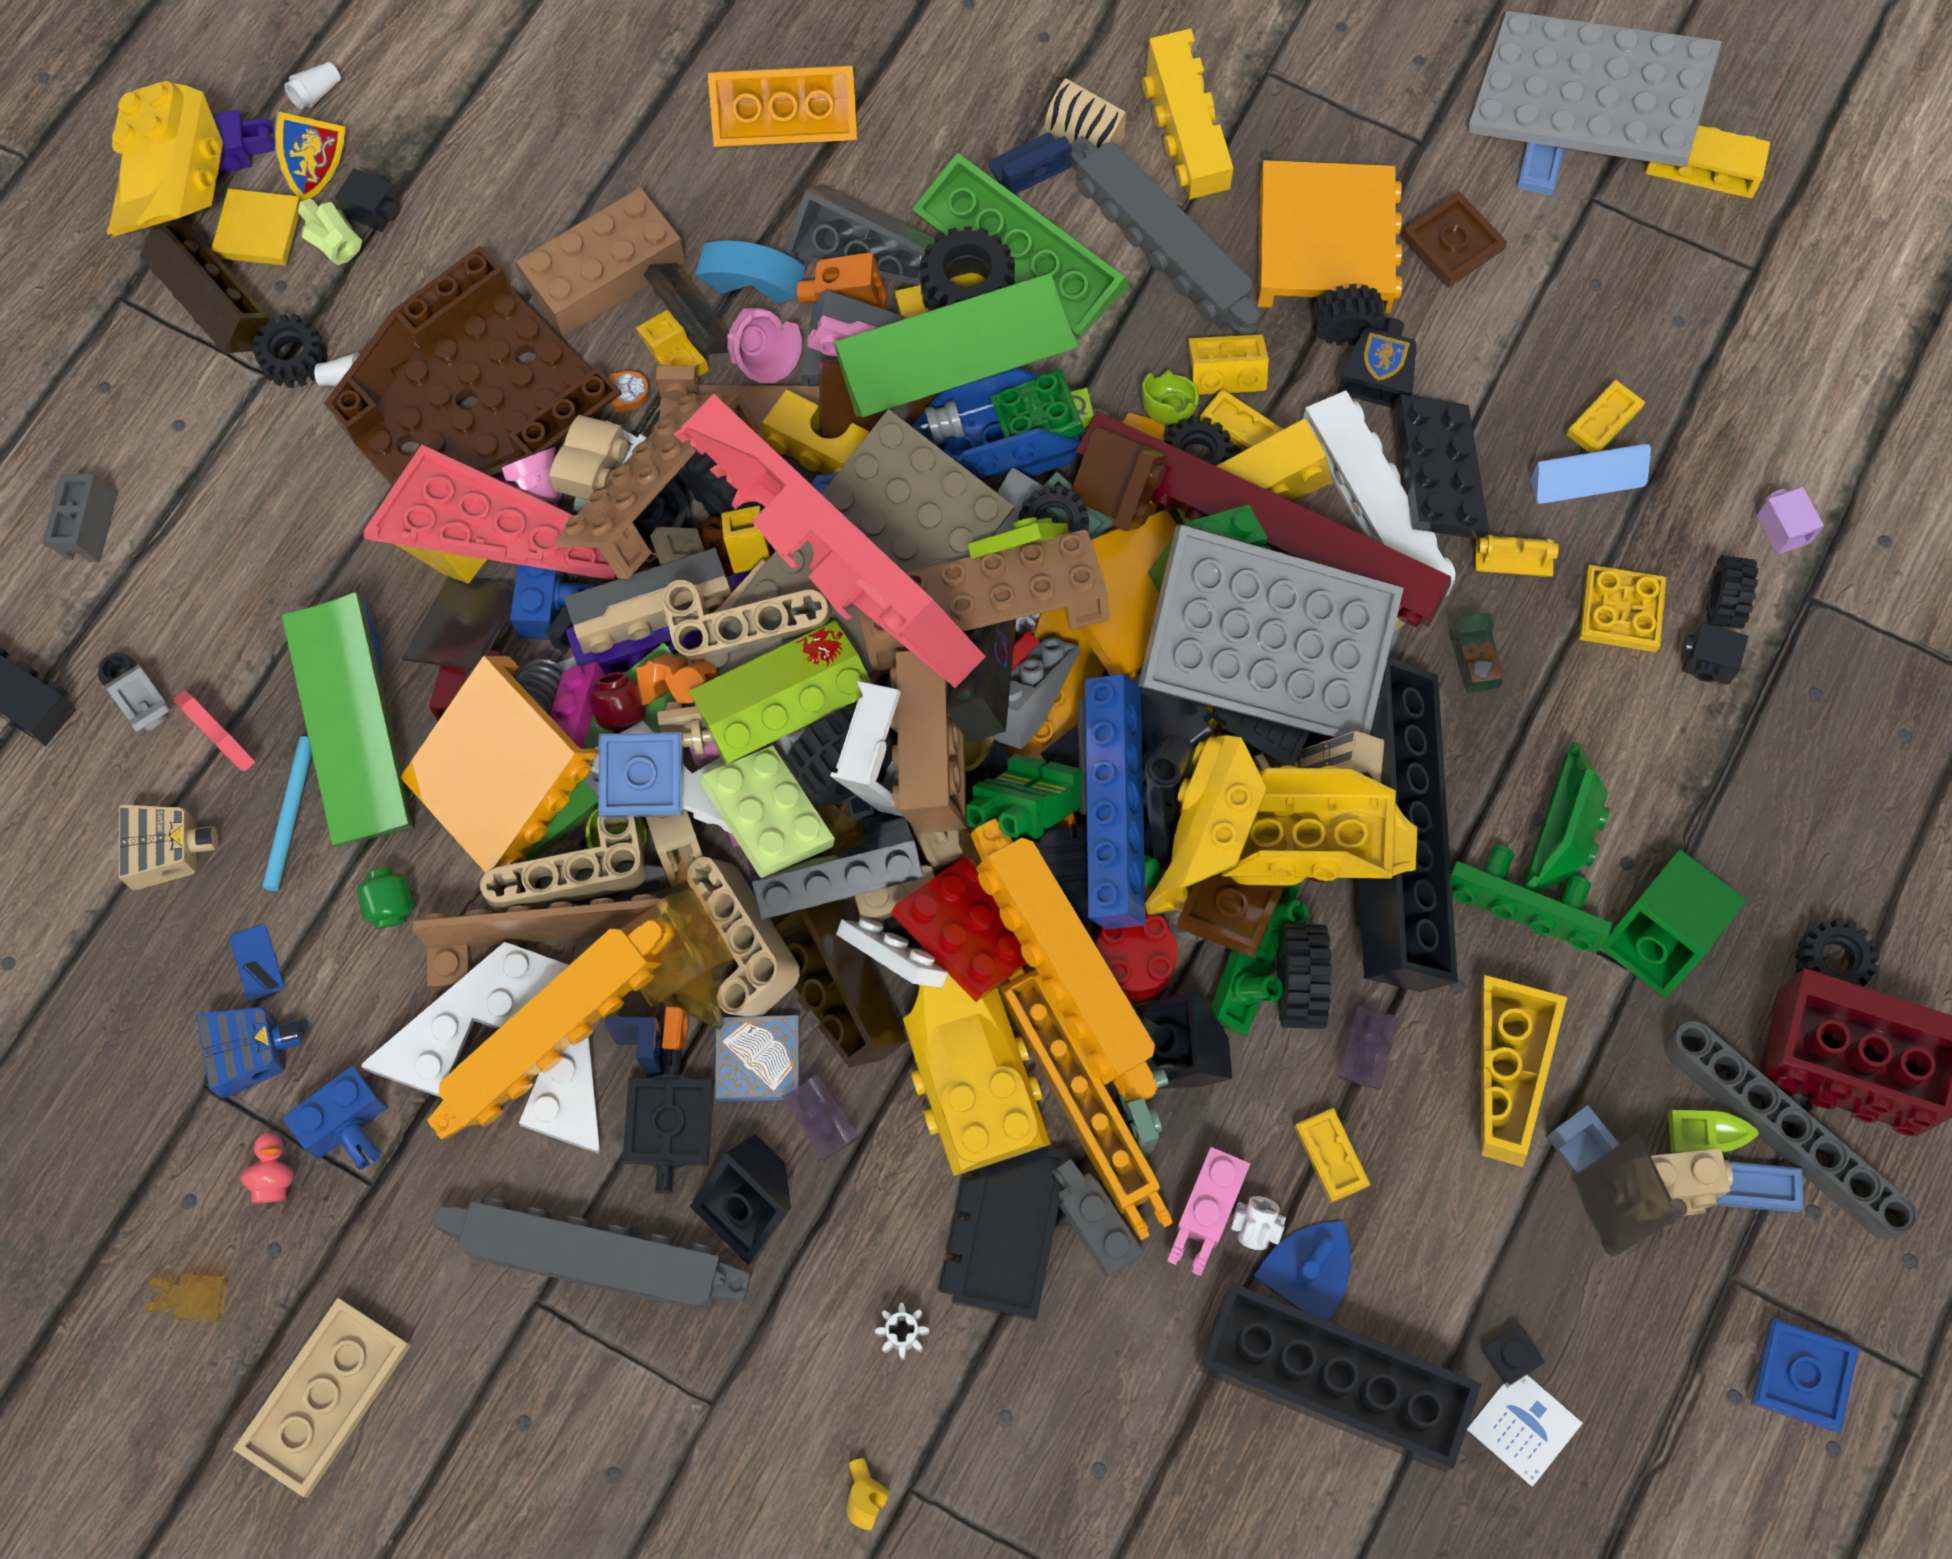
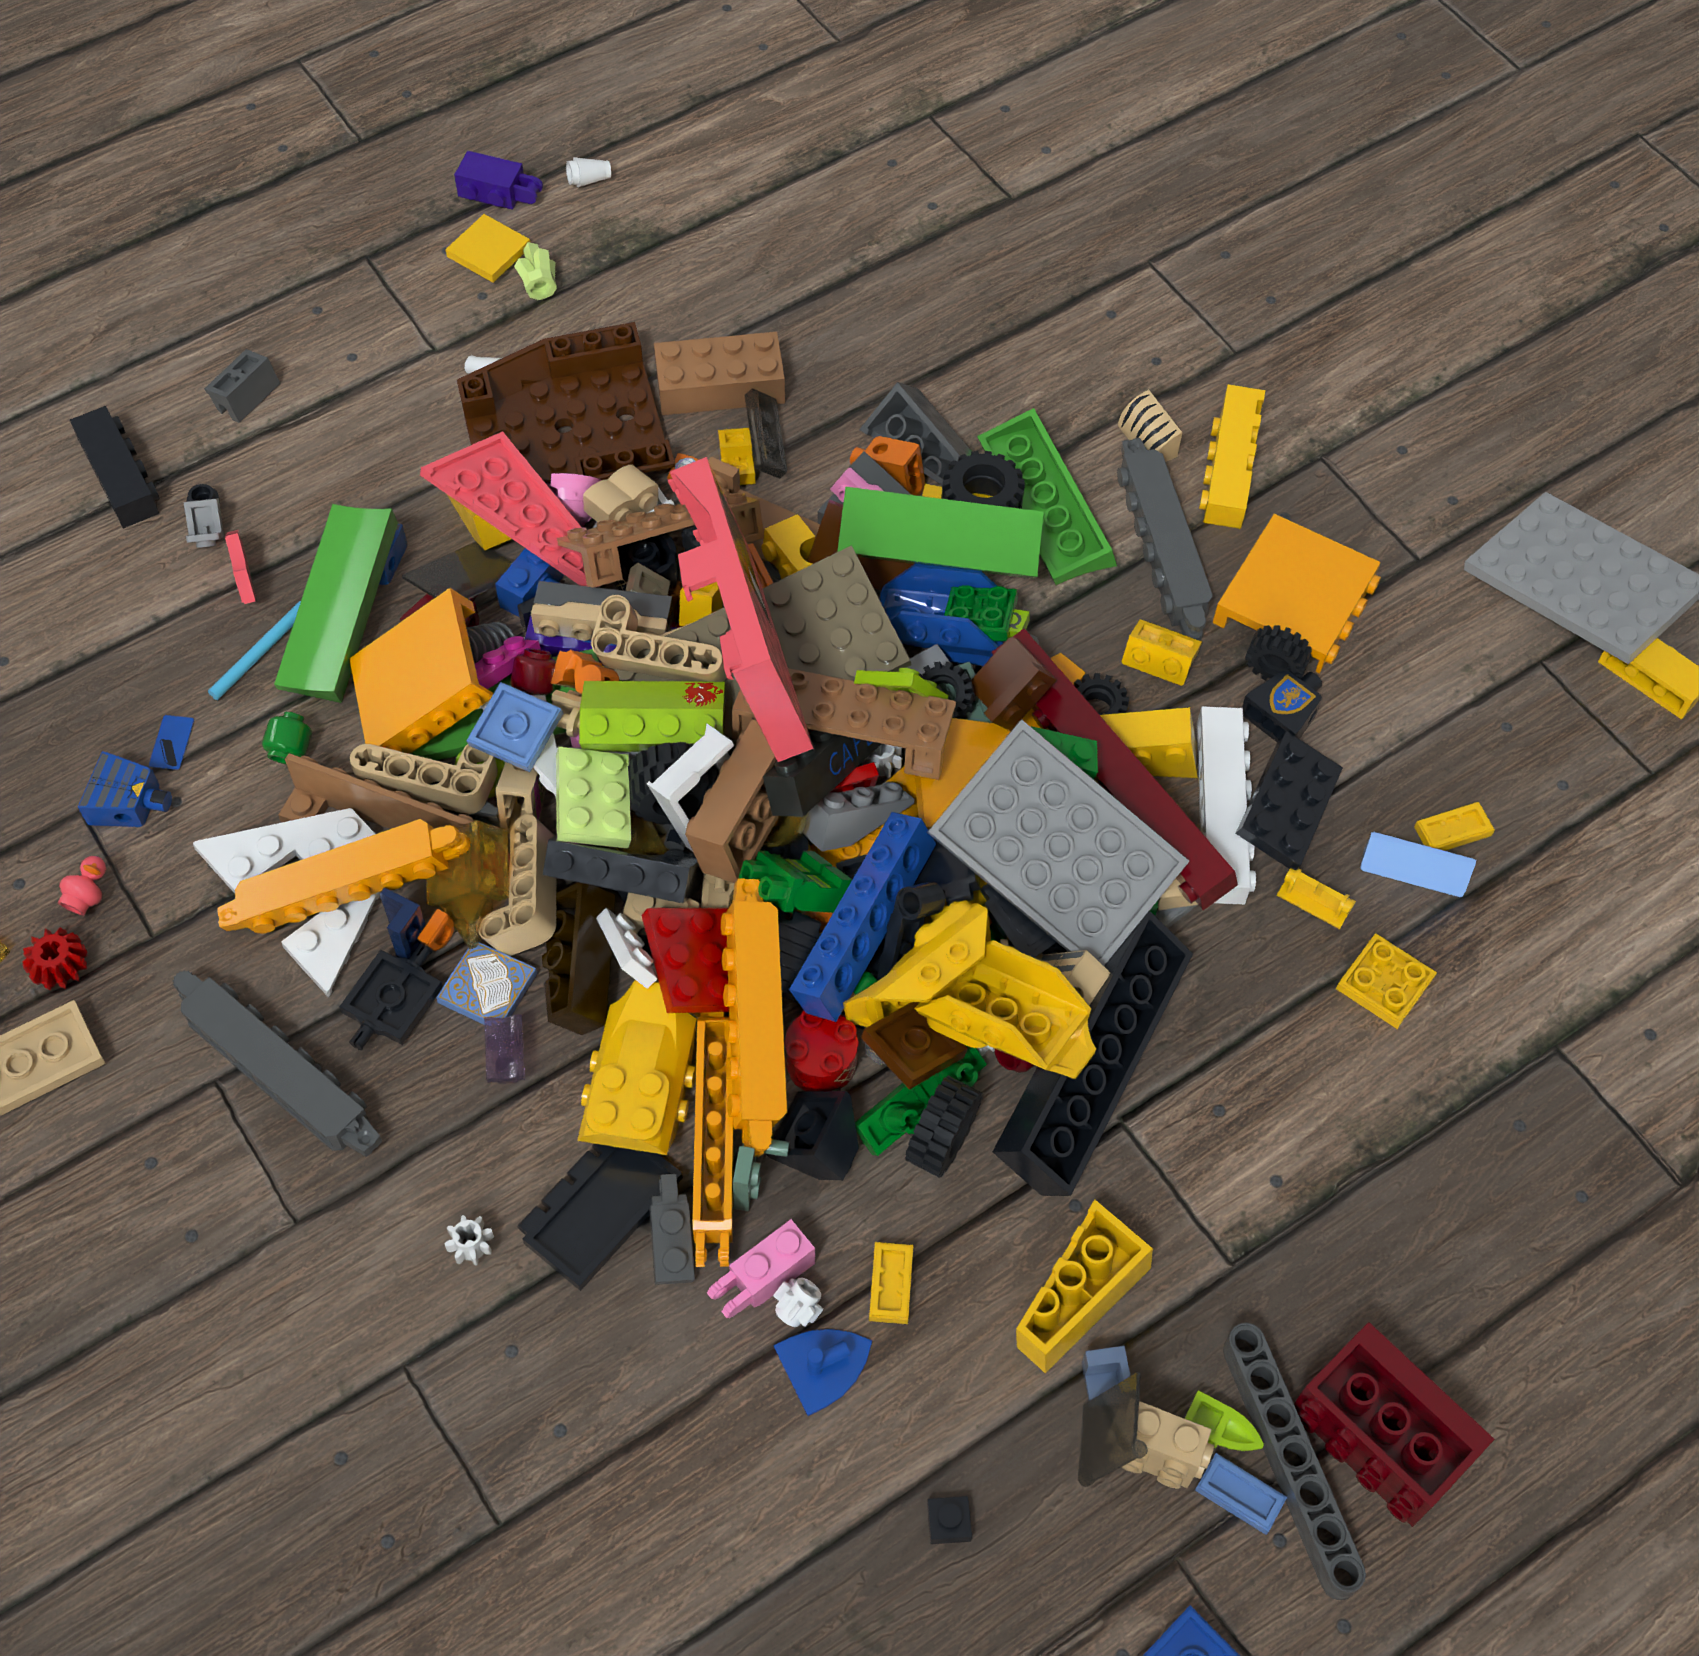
camera: 25 degrees right, 10 degrees down
(159, 844) = (154, 627): tan torso -> none
(167, 156) = (451, 170): yellow slope -> none
(204, 286) = (425, 270): dark brown brick -> none
(282, 334) = (458, 326): black tyre -> none
(283, 1247) = (55, 958): none -> red gear
(307, 152) = (553, 212): shield -> none
(337, 1117) = (155, 872): blue brick -> none
(368, 199) = (578, 262): black brick -> none
(739, 264) = (820, 416): dark azure brick -> none
(745, 1197) = (412, 1076): black slope -> none
(763, 345) = (802, 480): bright pink helmet -> none
(783, 105) = (922, 323): light orange slope -> none
(865, 1496) = (365, 1348): yellow piece -> none
(944, 422) = (904, 589): light grey wheel -> none
(1032, 162) = (1091, 444): dark blue panel -> none
(1169, 398) = (1097, 653): lime hair -> none
(1241, 421) = (1142, 691): yellow plate -> none
(1340, 1377) = (791, 1455): black brick -> none
(1368, 1048) = (968, 1212): clear purple hips -> none
(1454, 239) = (1402, 640): reddish brown plate -> none
(1476, 652) = (1239, 954): clear green leg -> none
(1525, 1428) = (927, 1585): white sticker -> none
(1540, 168) = (1508, 619): medium blue tile -> none
(1540, 913) = (1176, 1181): green plate -> none
(1569, 823) = (1237, 1125): green wedge -> none
(1673, 924) = (1284, 1241): green slope -> none
(1713, 653) = (1443, 1049): black brick -> none
(1732, 591) = (1483, 1005): black tyre -> none
(1789, 519) = (1570, 976): lavender brick -> none
(1853, 942) = (1430, 1326): black tyre -> none

